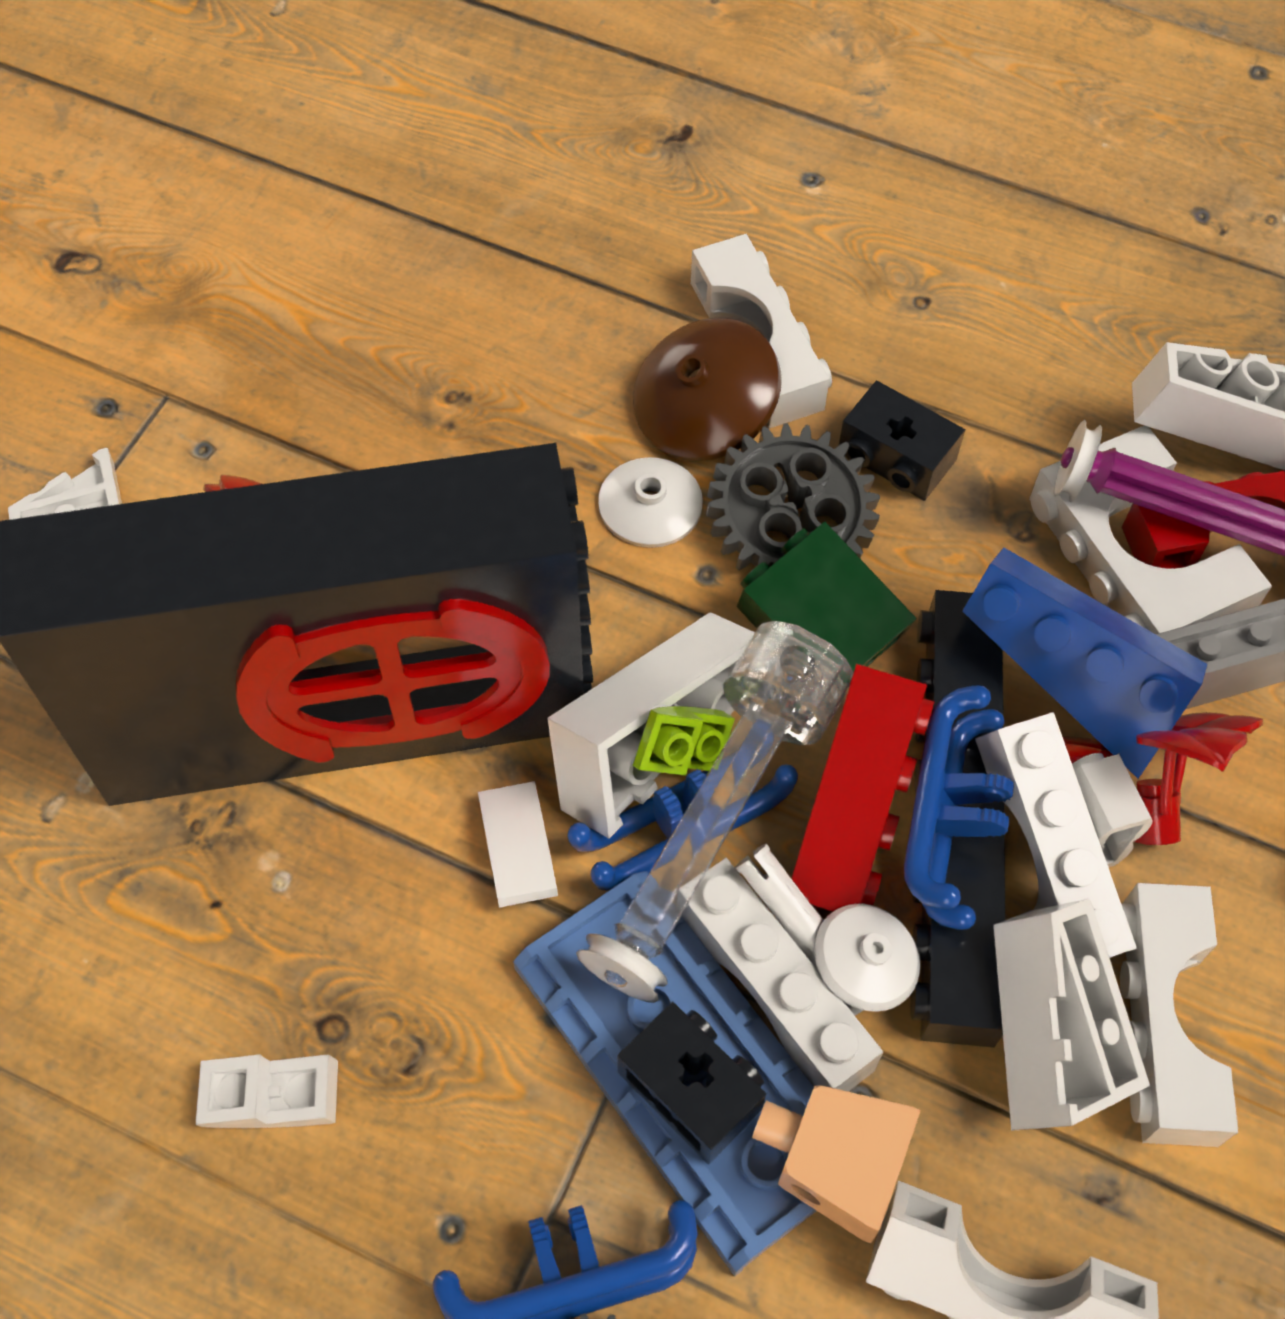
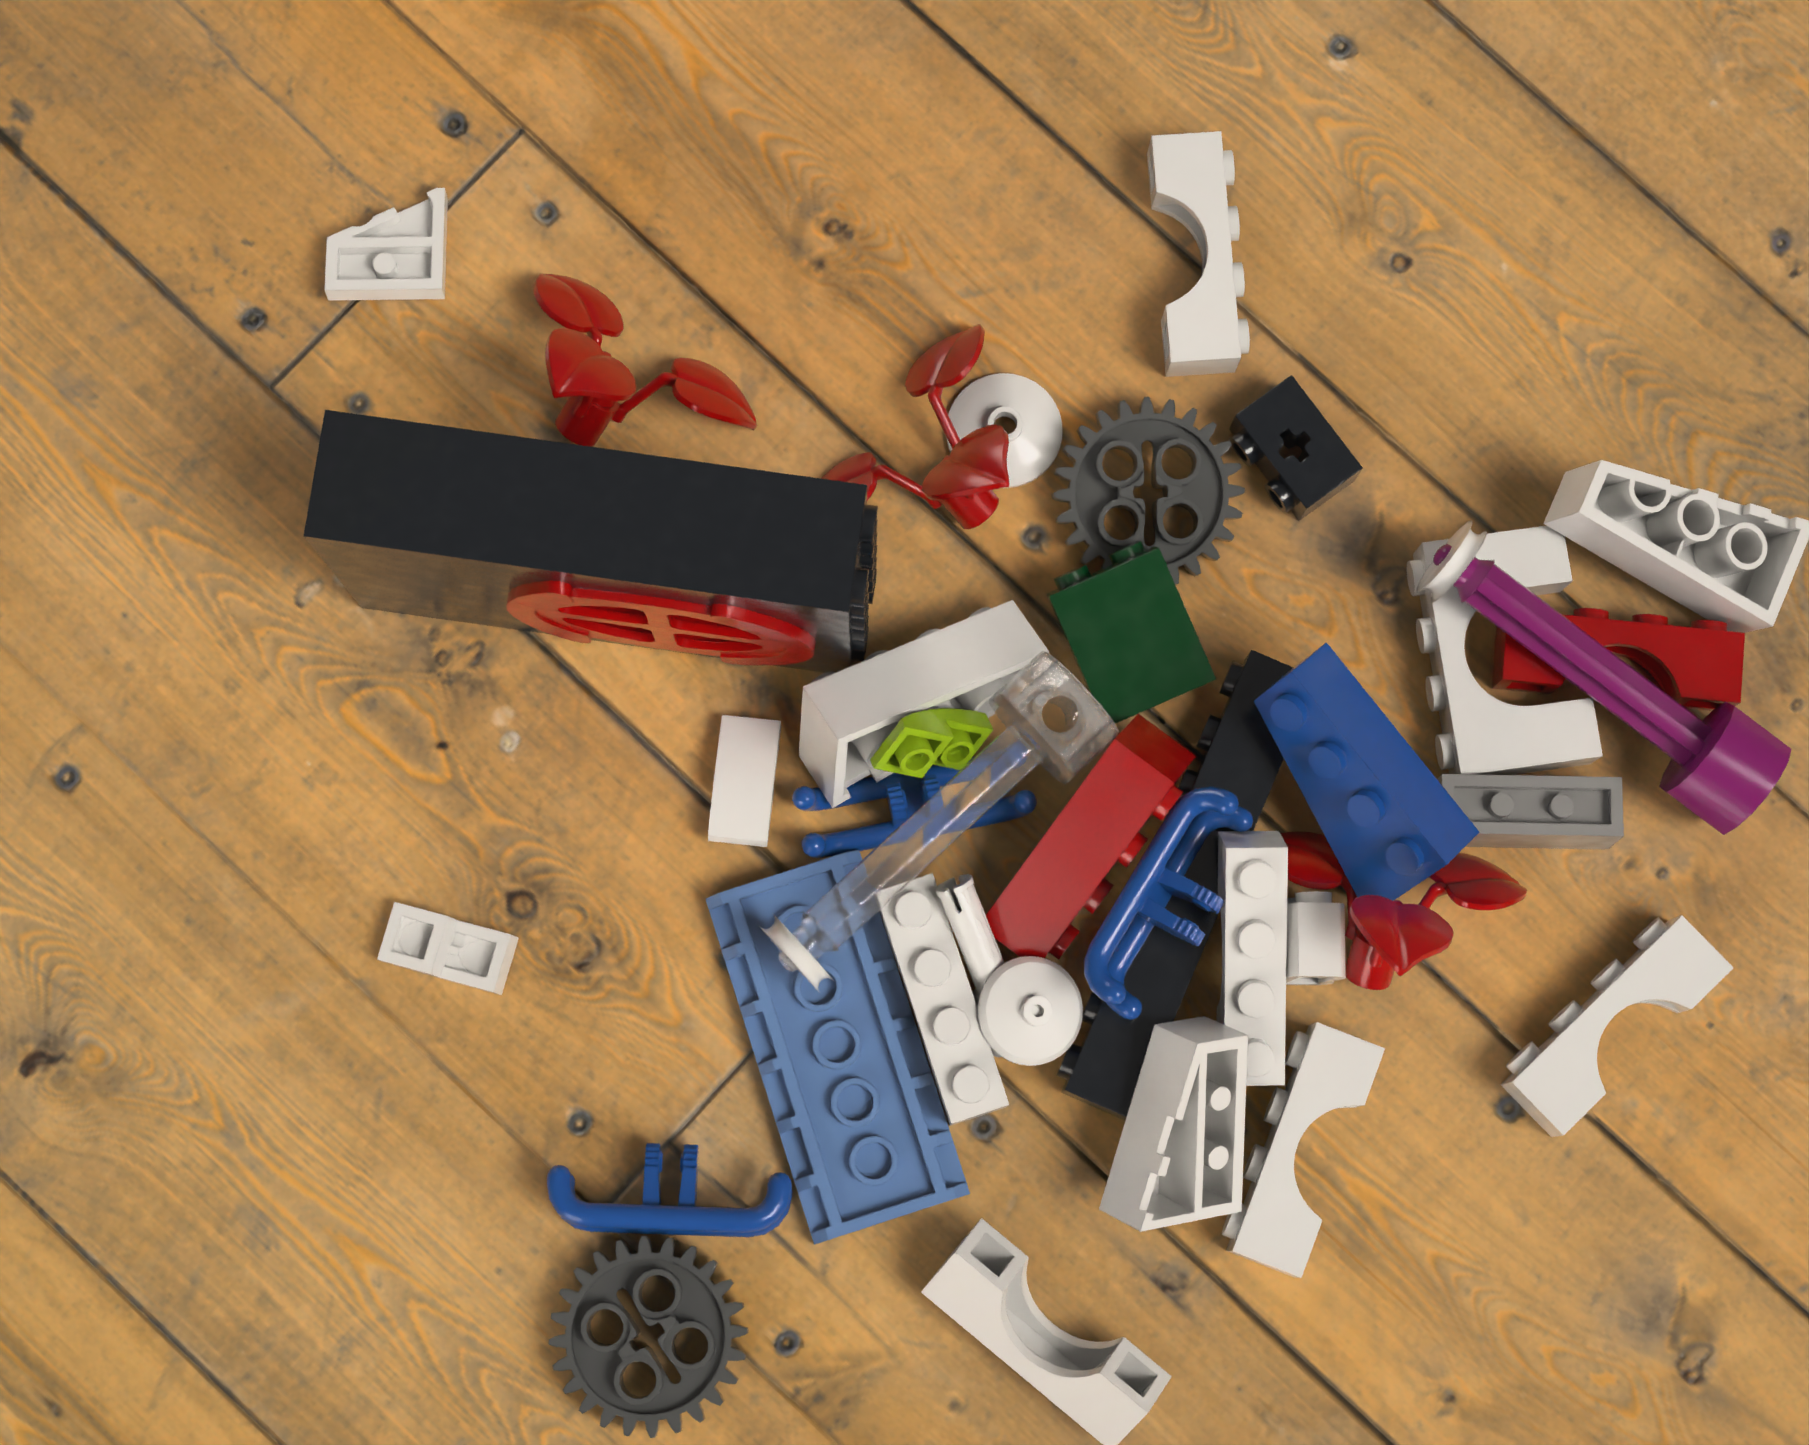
camera: 15 degrees right, 20 degrees up
(626, 539) = (976, 462): none -> red plant
(700, 1115) = (798, 1051): black brick -> none
(720, 404) = (1132, 338): reddish brown dish -> none
(841, 1154) = (936, 1180): light nougat torso -> none

